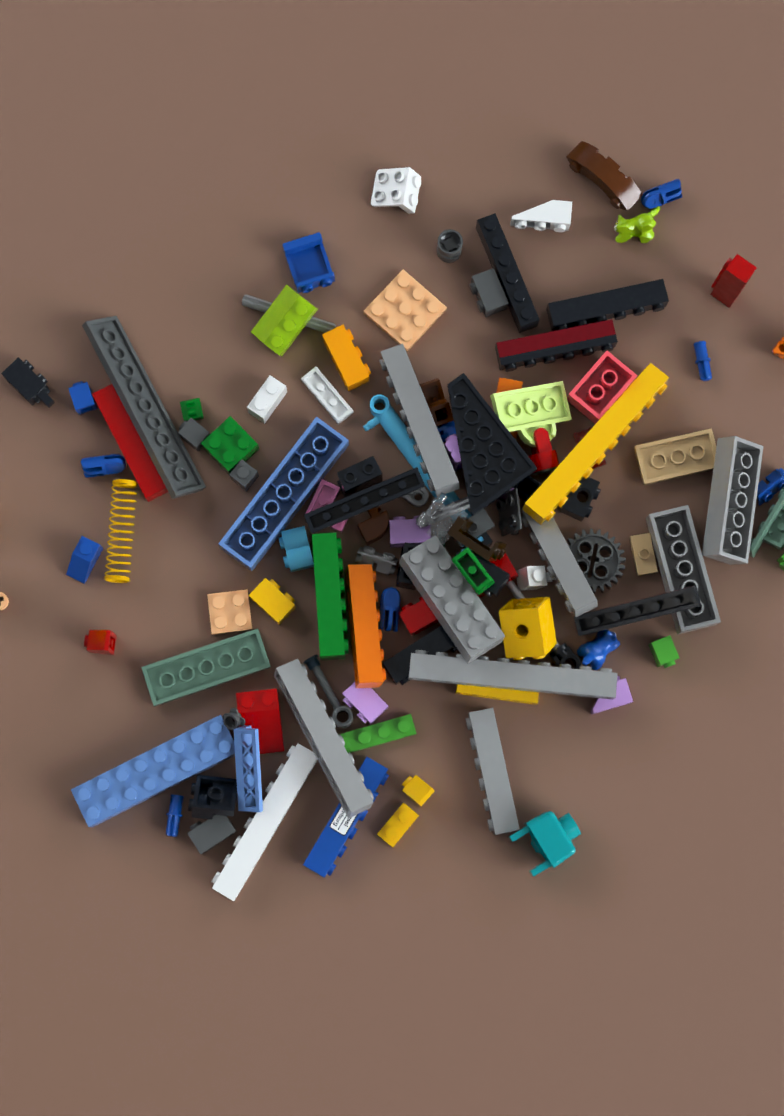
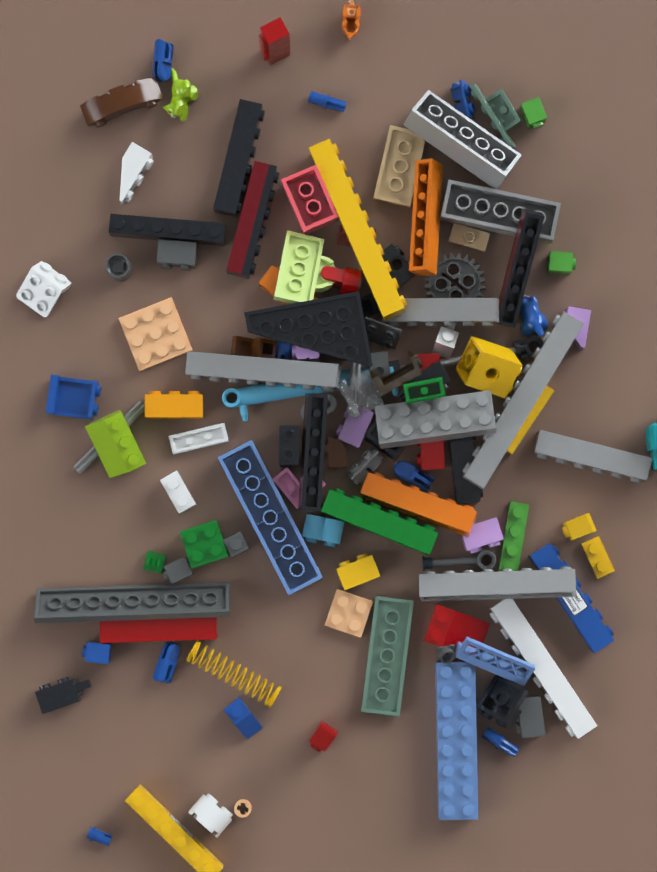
camera: 65 degrees left, 5 degrees up
(640, 502) = (426, 217): none -> orange brick

